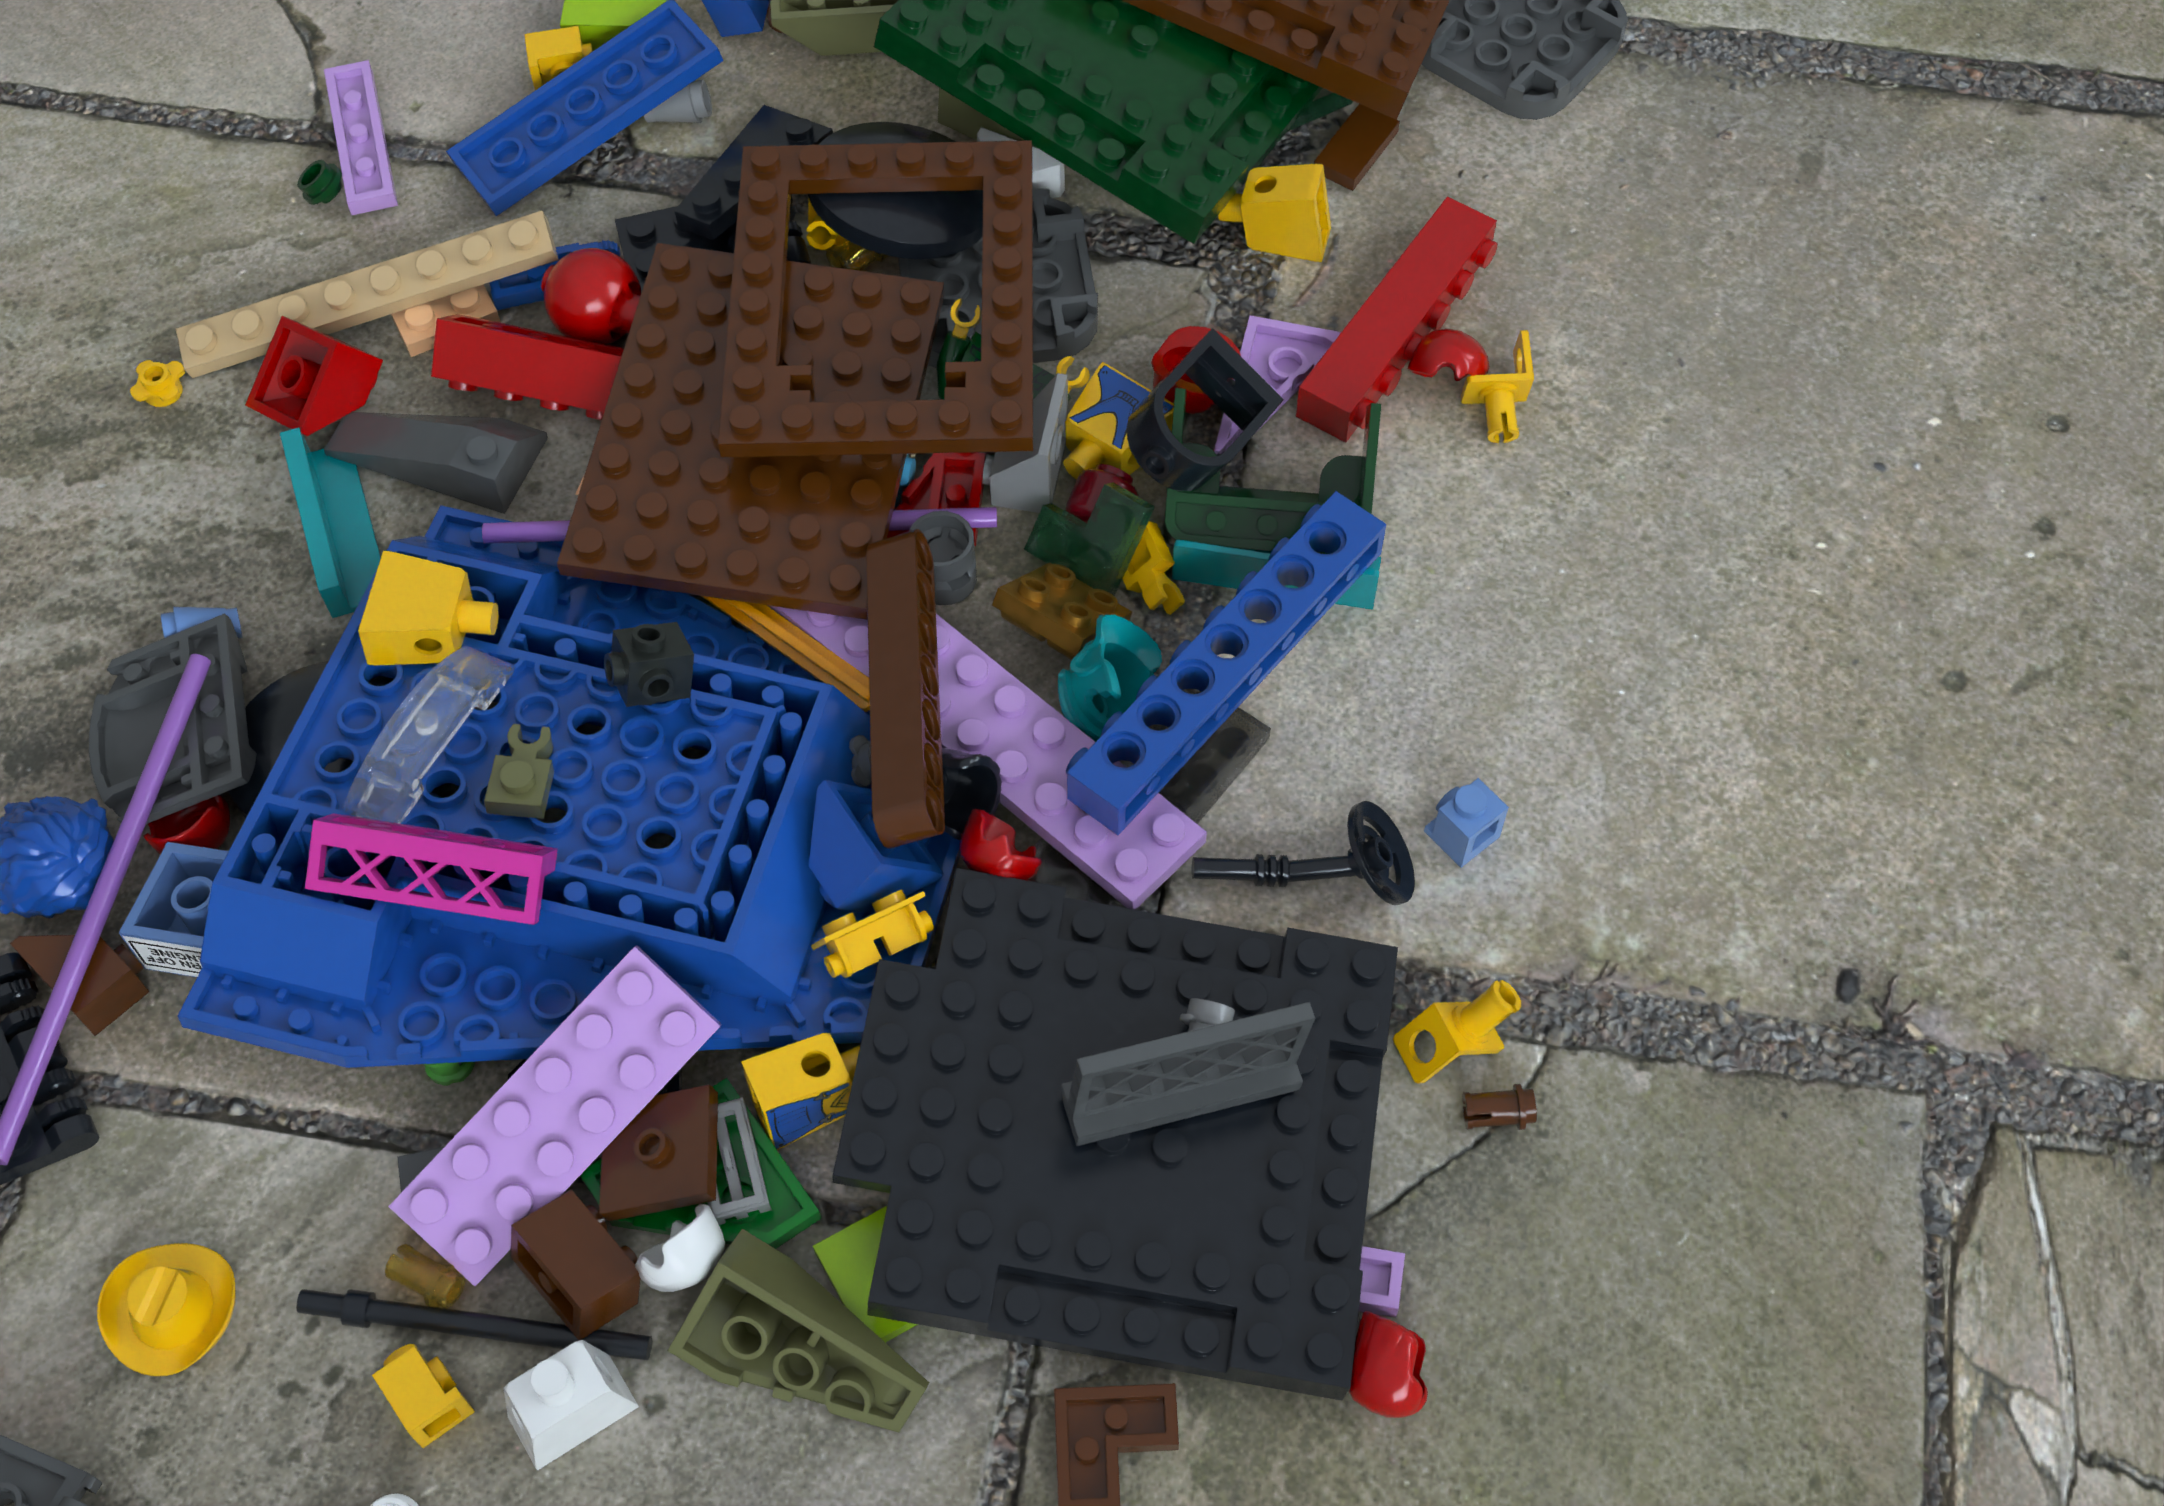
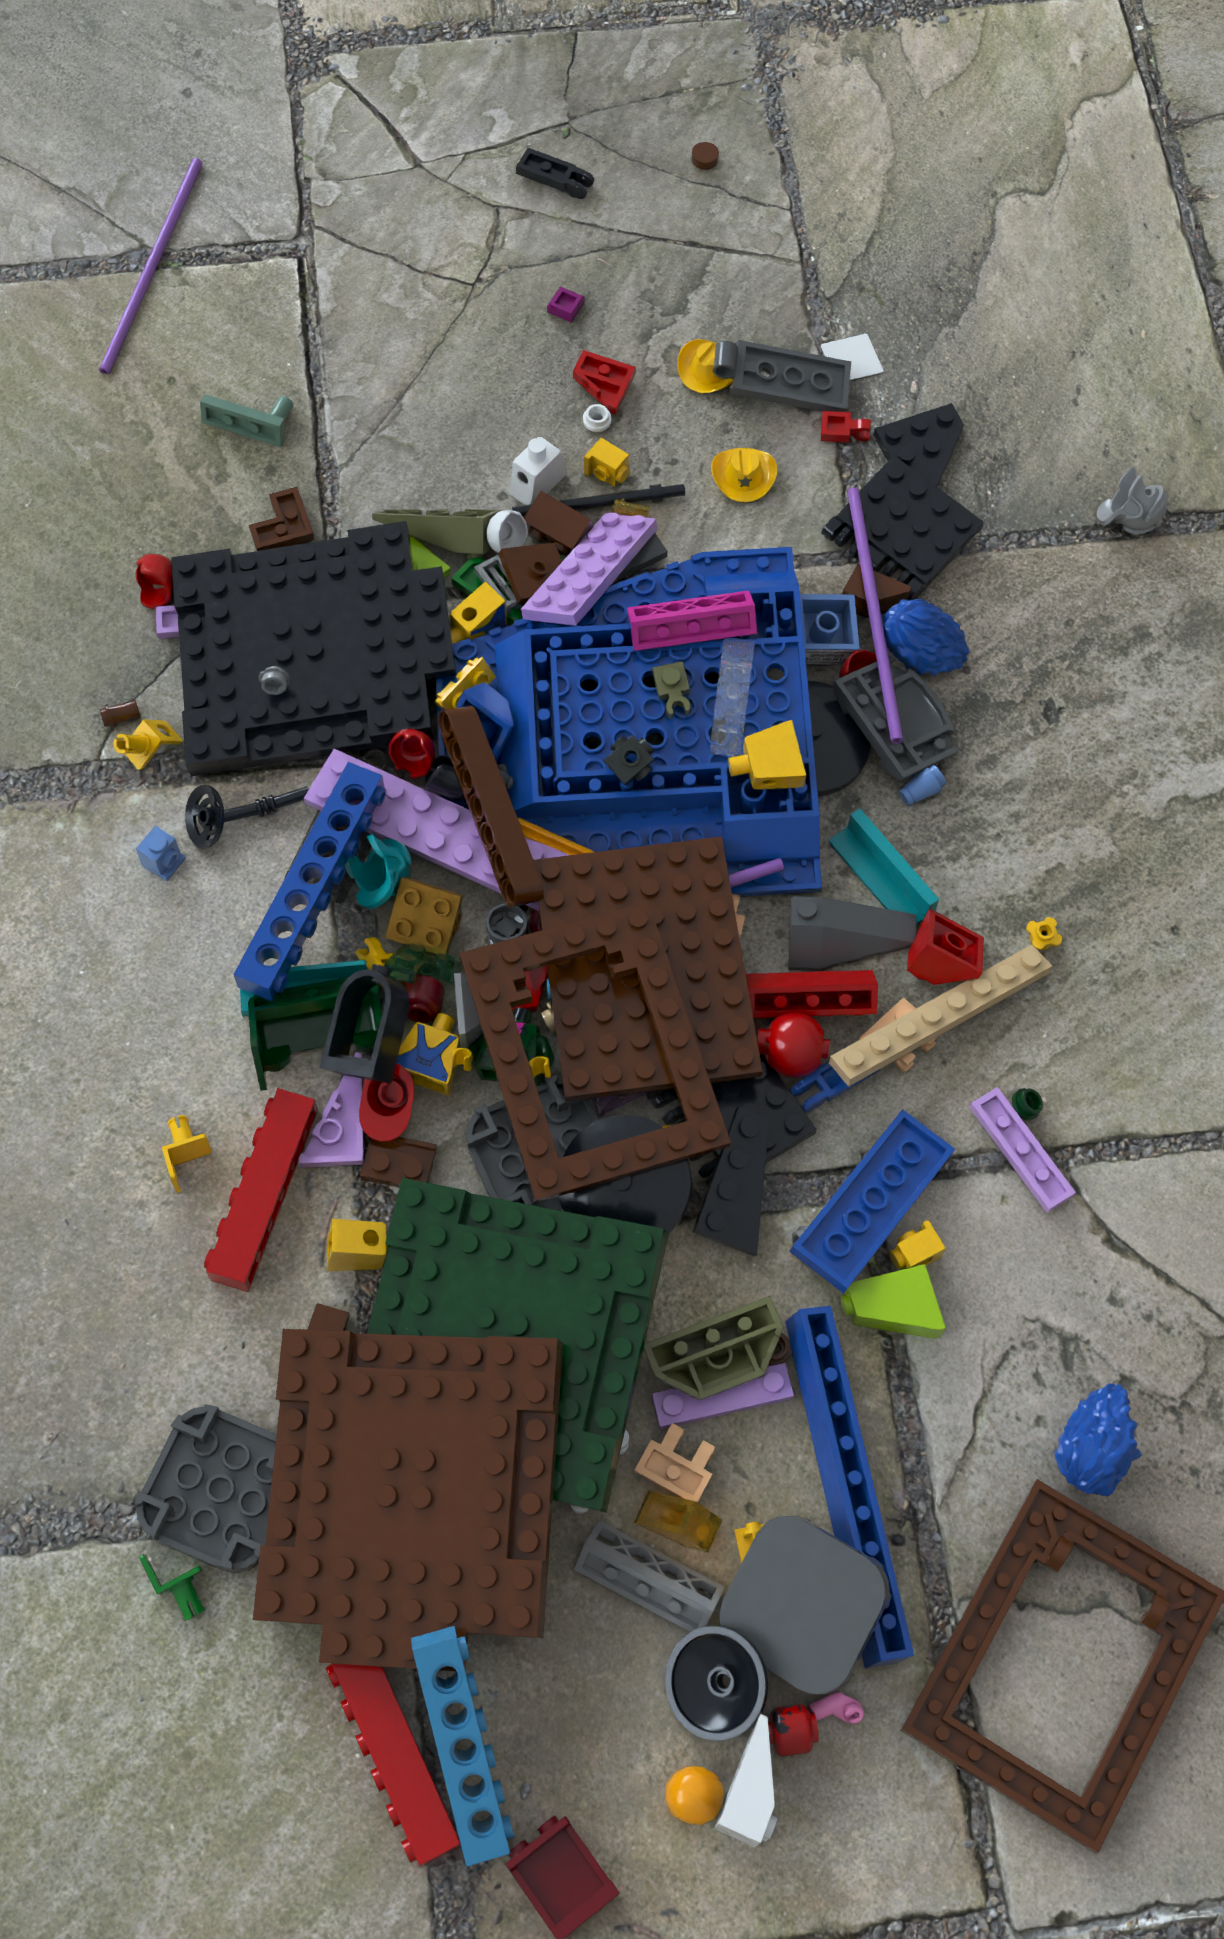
camera: 160 degrees right, 5 degrees up
(1186, 1074) = (289, 641): dark grey fence -> none
(1193, 304) = (398, 1159): none -> reddish brown plate
(1451, 350) = (221, 1153): red hair -> none

